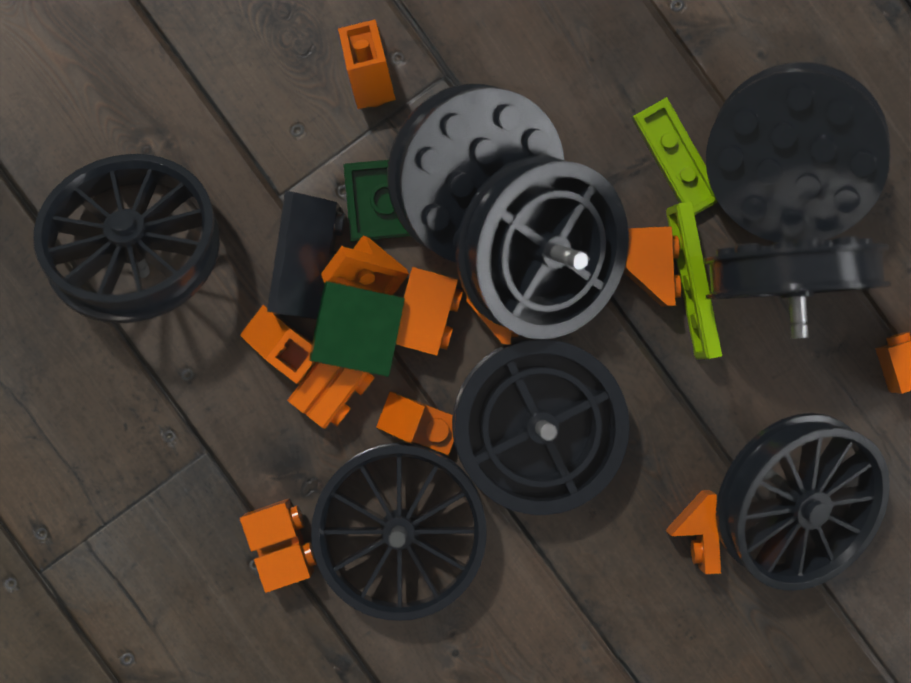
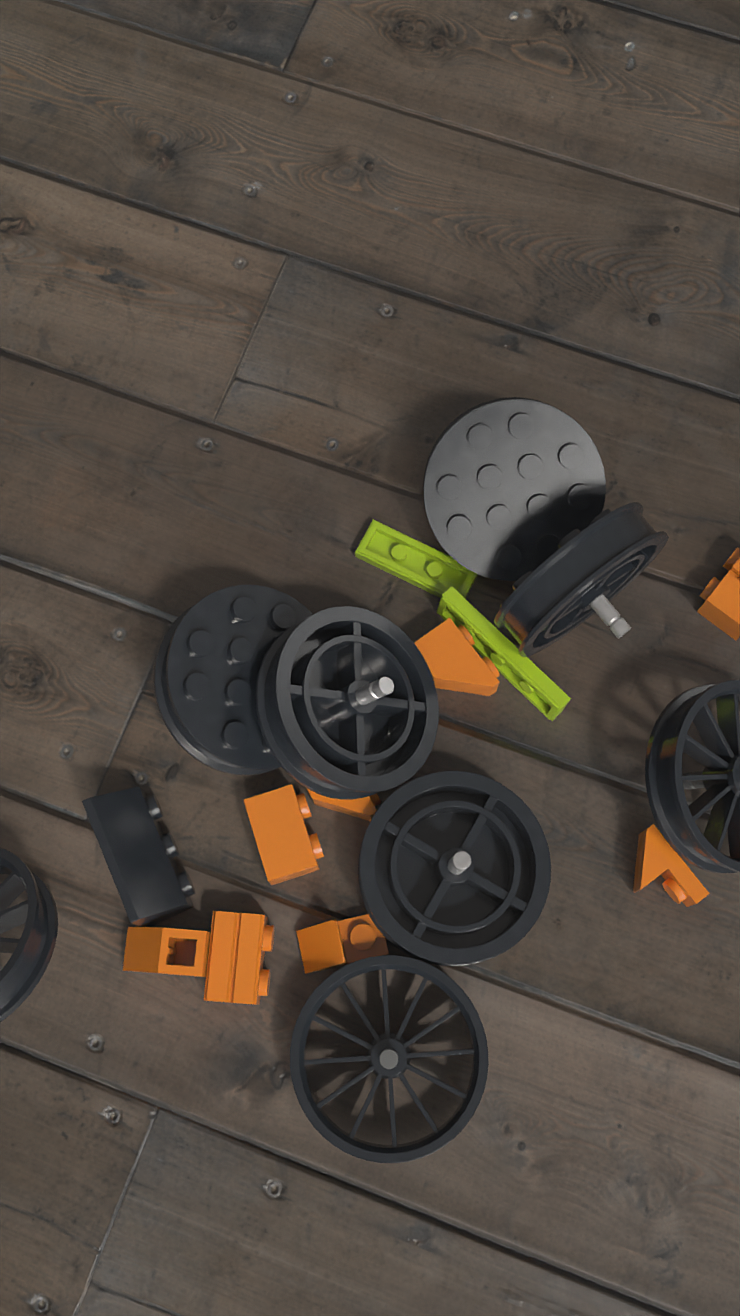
camera: 30 degrees left, 15 degrees down
(279, 544) = (282, 1151): orange piece -> none
(356, 329) = (226, 887): dark green tile -> none
(365, 268) = (203, 832): orange slope -> none
(366, 64) = (95, 654): orange slope -> none
(369, 202) = (173, 772): dark green tile -> none

